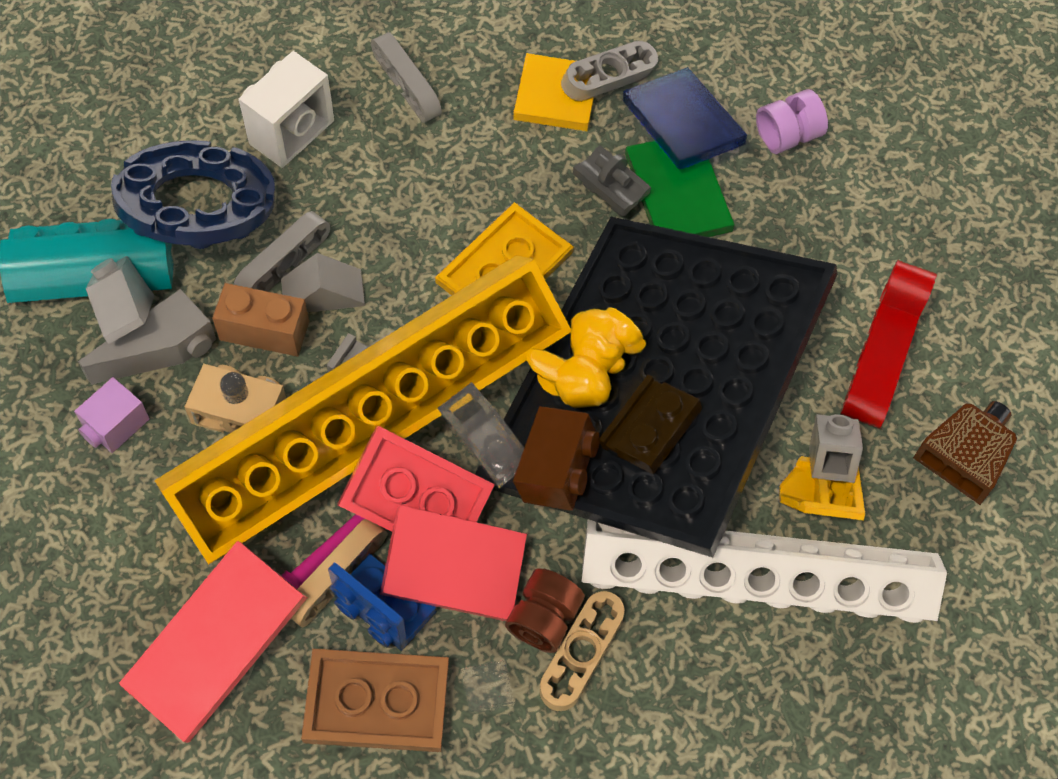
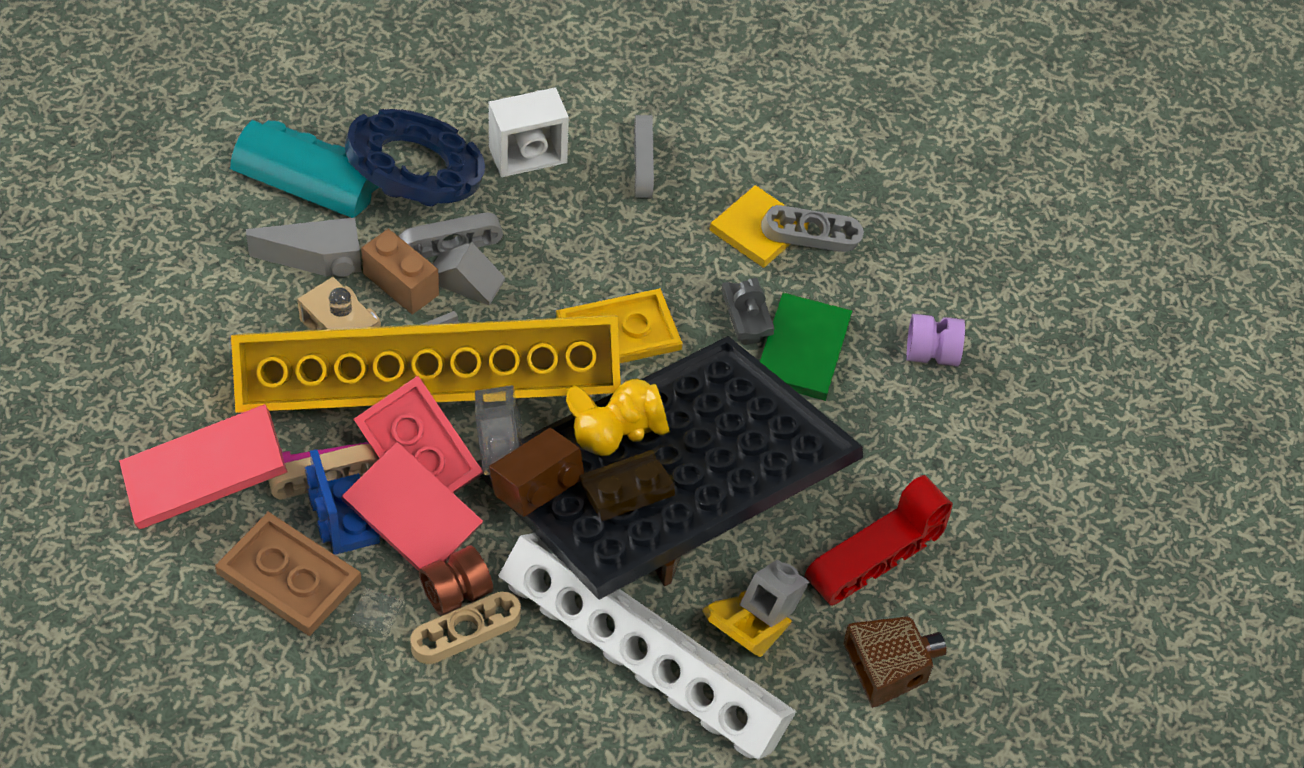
camera: 30 degrees right, 10 degrees down
(111, 416) = (244, 281): lavender brick -> none
(118, 298) = (305, 199): light grey slope -> none
(684, 118) = (846, 294): clear blue tile -> none

